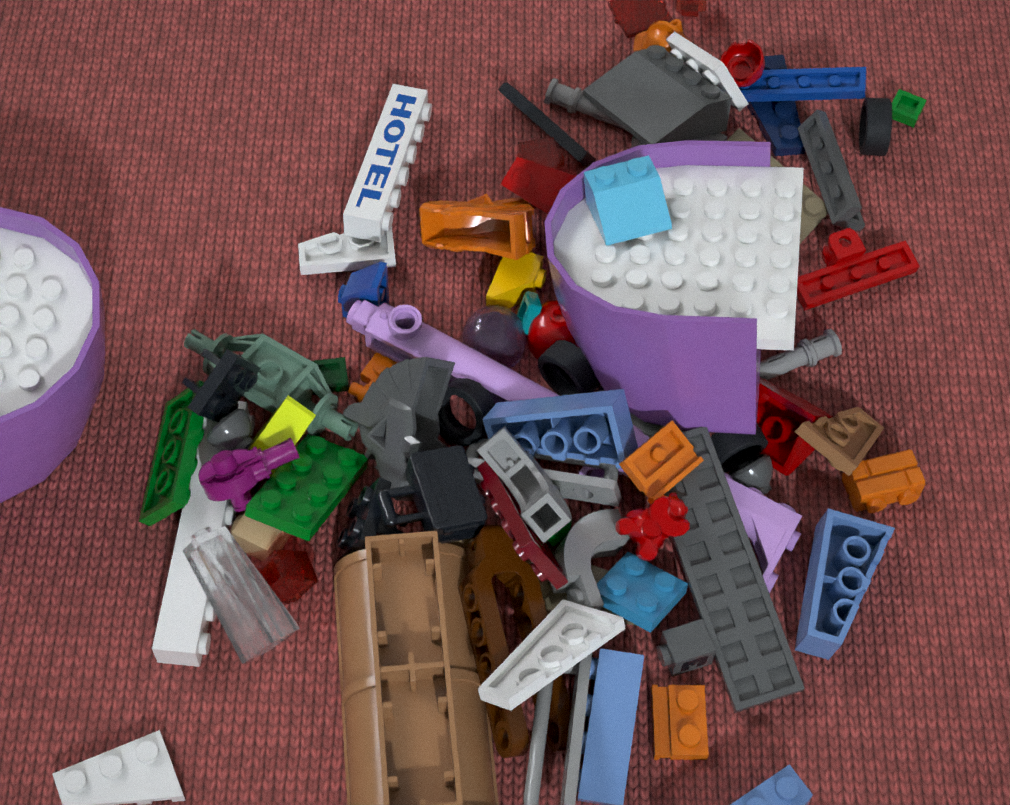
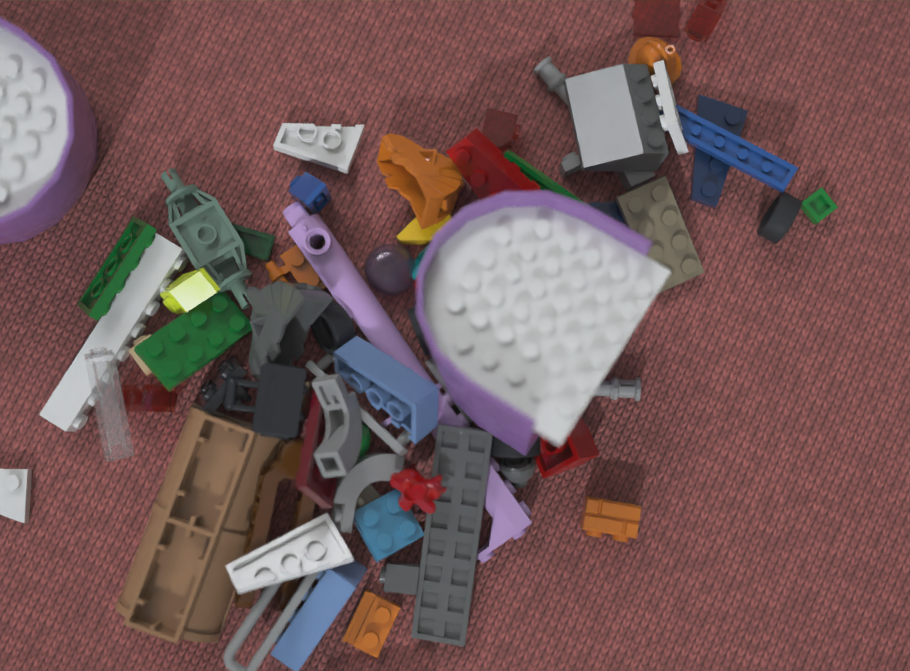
camera: 25 degrees right, 25 degrees up
(224, 385) = (157, 243): black plate -> none
(231, 432) = (155, 276): dark grey brick -> none
(237, 471) = (147, 314): magenta pin -> none
(387, 163) = (380, 79): white brick -> none
(547, 124) = (522, 96): black tile -> none
(627, 200) = (508, 245): medium azure slope -> none
(661, 462) = (441, 451): orange plate -> none
(744, 62) = (700, 116): red hair -> none
(831, 171) = (720, 241): dark grey fence -> none
(837, 577) = (530, 581): medium blue wedge -> none
(842, 438) = (595, 479): medium nougat wing -> none
(852, 270) = (689, 334): red plate -> none

